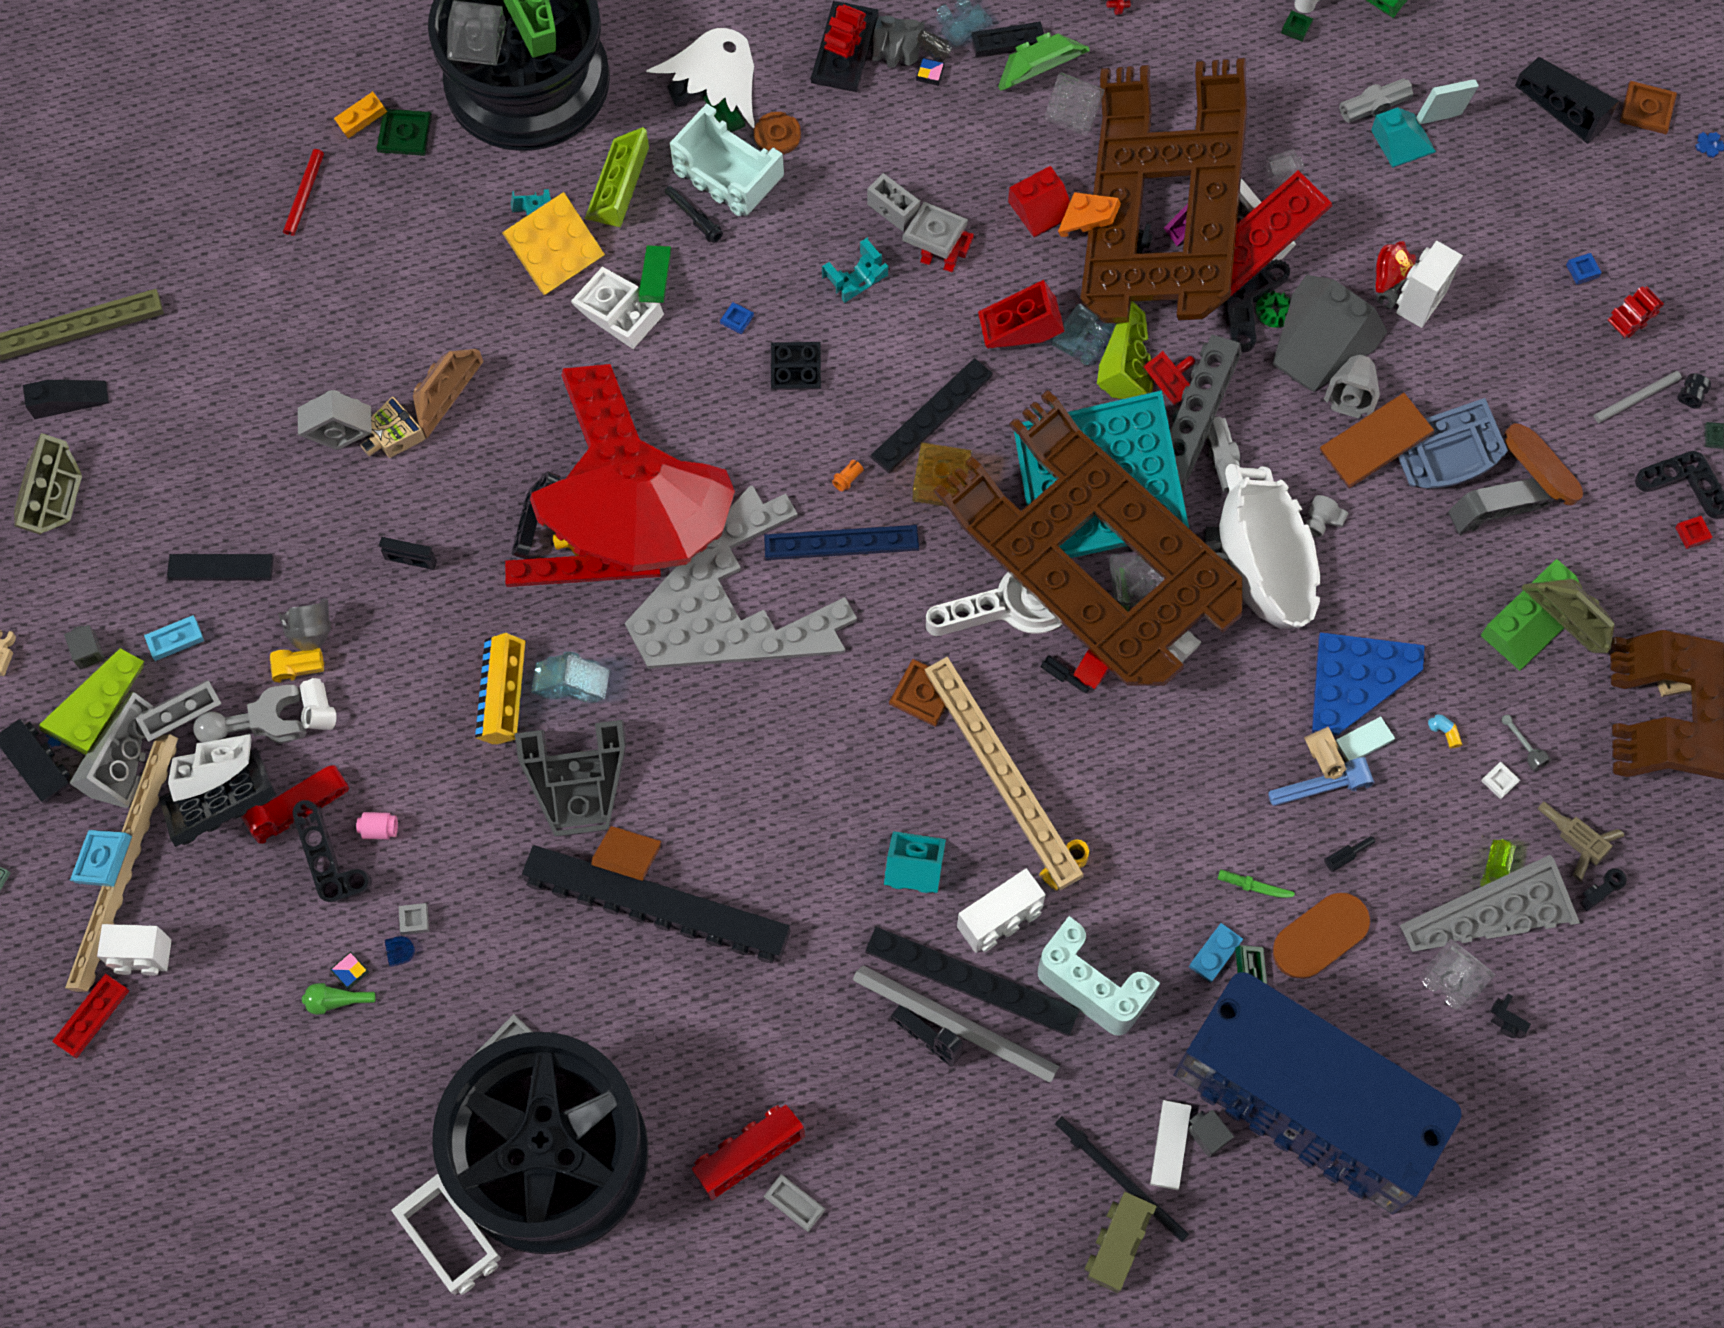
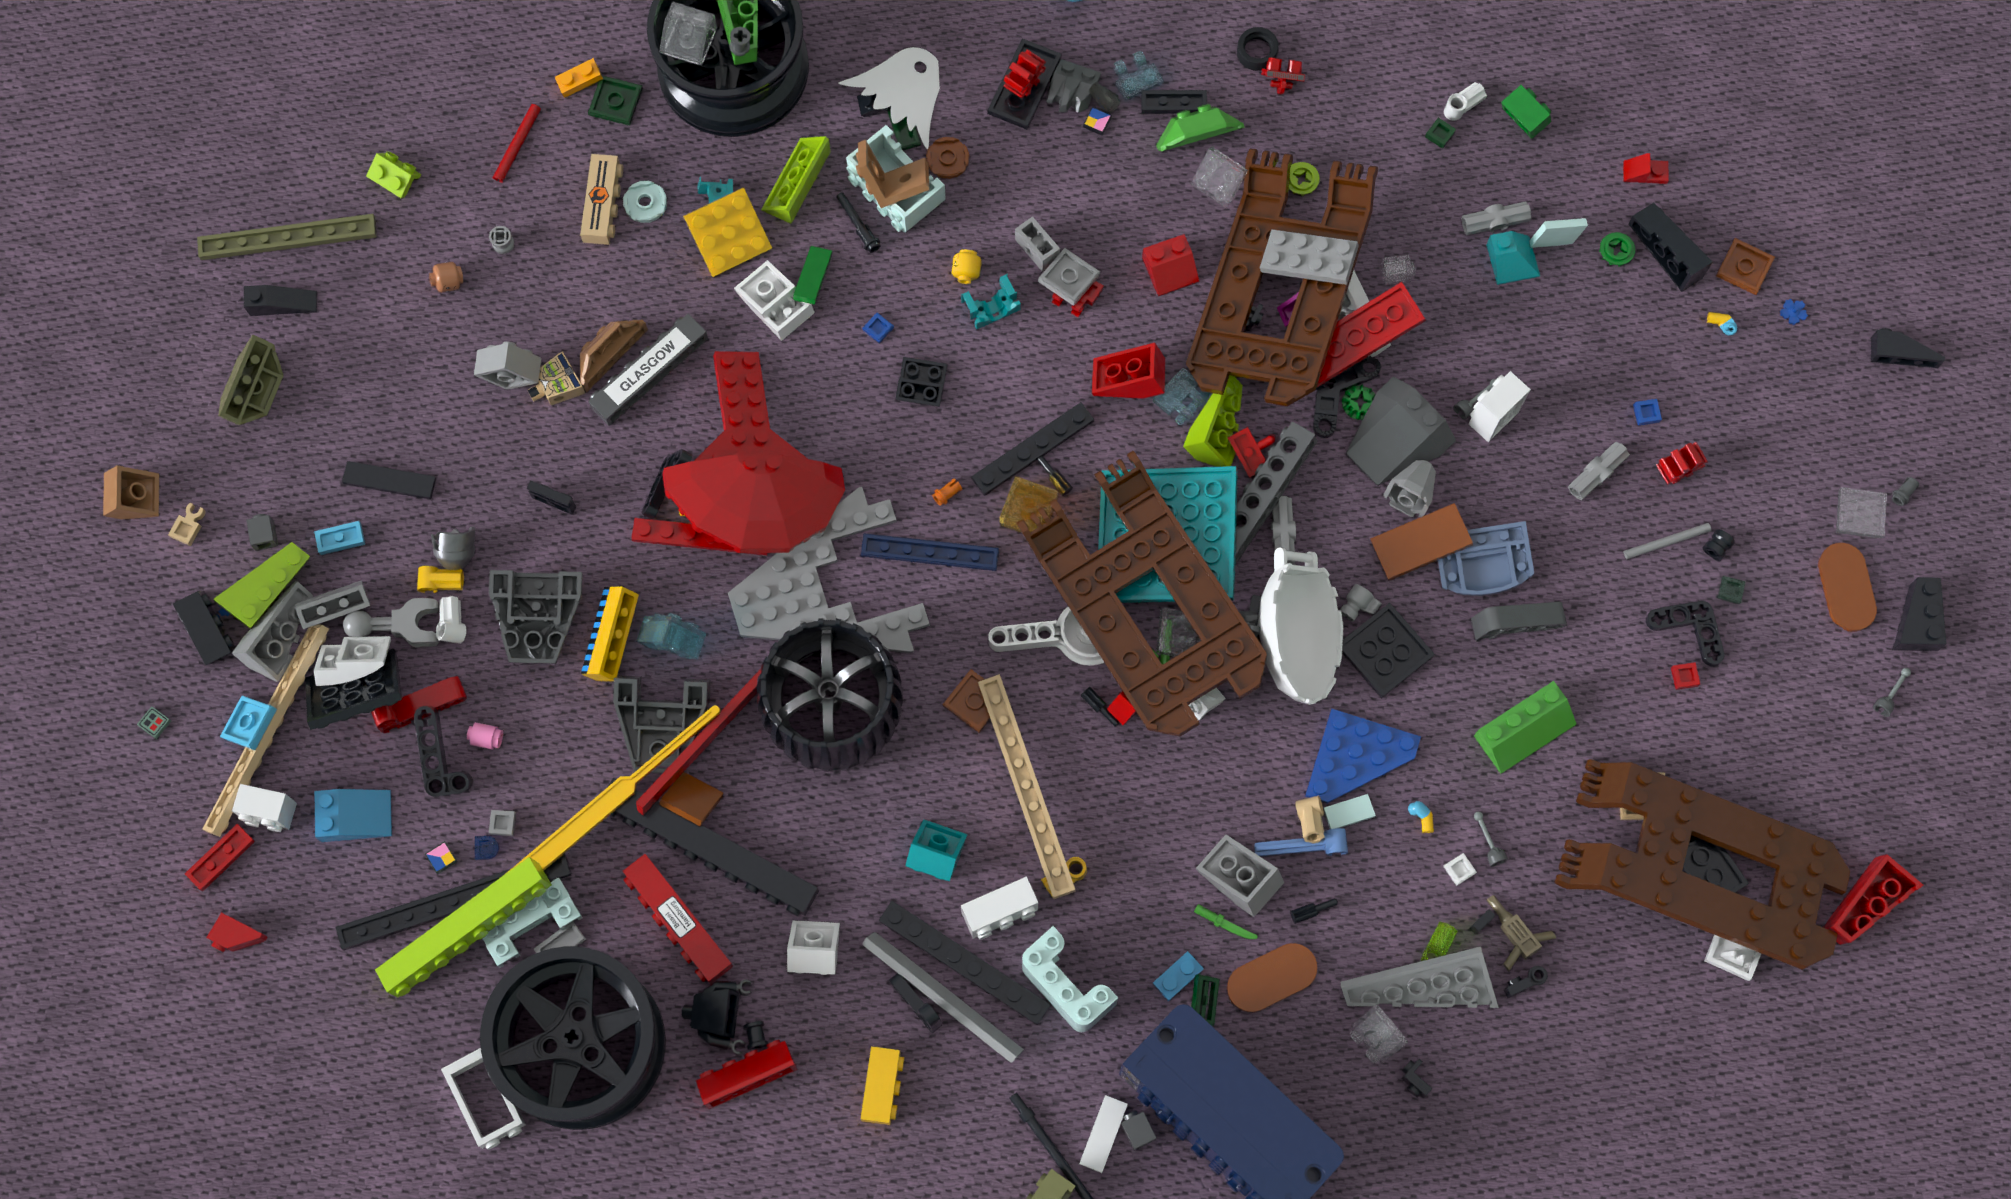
camera: 10 degrees right, 5 degrees up
(120, 1100) = (233, 934): none -> red slope
(170, 245) = (392, 173): none -> lime bracket
(238, 939) = (352, 814): none -> dark azure slope
(249, 341) = (446, 277): none -> nougat head
(302, 298) = (501, 244): none -> light grey wheel
(321, 998) = (413, 878): bright green piece -> none
(371, 1017) = (426, 909): none -> black plate
(389, 1043) = (463, 927): none -> lime brick
(406, 234) = (600, 199): none -> tan brick
(411, 673) = (534, 612): none -> dark grey wedge
(455, 242) = (647, 213): none -> light aqua tile
(457, 1017) = (553, 903): none -> light aqua bracket
(491, 401) = (648, 369): none -> dark grey brick
(513, 893) = (609, 799): none -> yellow piece
(536, 21) = (743, 35): none -> dark grey bush
(626, 788) = (698, 745): none -> red tile
(635, 990) = (677, 918): none -> red brick
(700, 1088) = (716, 1013): none -> black torso
(729, 163) = (892, 185): none -> medium nougat bracket
(749, 1105) = (755, 1035): none -> black bush
(751, 646) = (824, 638): none -> black wheel
(794, 1203) = (777, 1124): light grey tile -> none
(797, 994) = (813, 947): none -> white slope
(821, 238) = (966, 266): none -> yellow head
(907, 1136) = (882, 1086): none -> yellow brick
(963, 440) = (1056, 477): none -> black axle
(1088, 212) = (1209, 284): orange wing -> none
(1171, 92) = (1312, 178): none -> lime gear
(1191, 164) = (1309, 257): none -> light grey plate
(1262, 828) = (1241, 875): none -> light grey slope
(1364, 560) = (1385, 650): none -> black plate
(1393, 265) = (1473, 381): red hat -> none
(1519, 29) = (1644, 170): none -> red slope
(1520, 109) = (1612, 240): none -> green gear
(1540, 832) = (1482, 921): none -> black tile
(1543, 464) = (1564, 590): dark orange tile -> none
(1547, 336) = (1598, 470): none -> light grey piece
(1575, 612) = (1557, 731): olive wedge -> none
(1640, 165) = (1724, 321): none -> arm

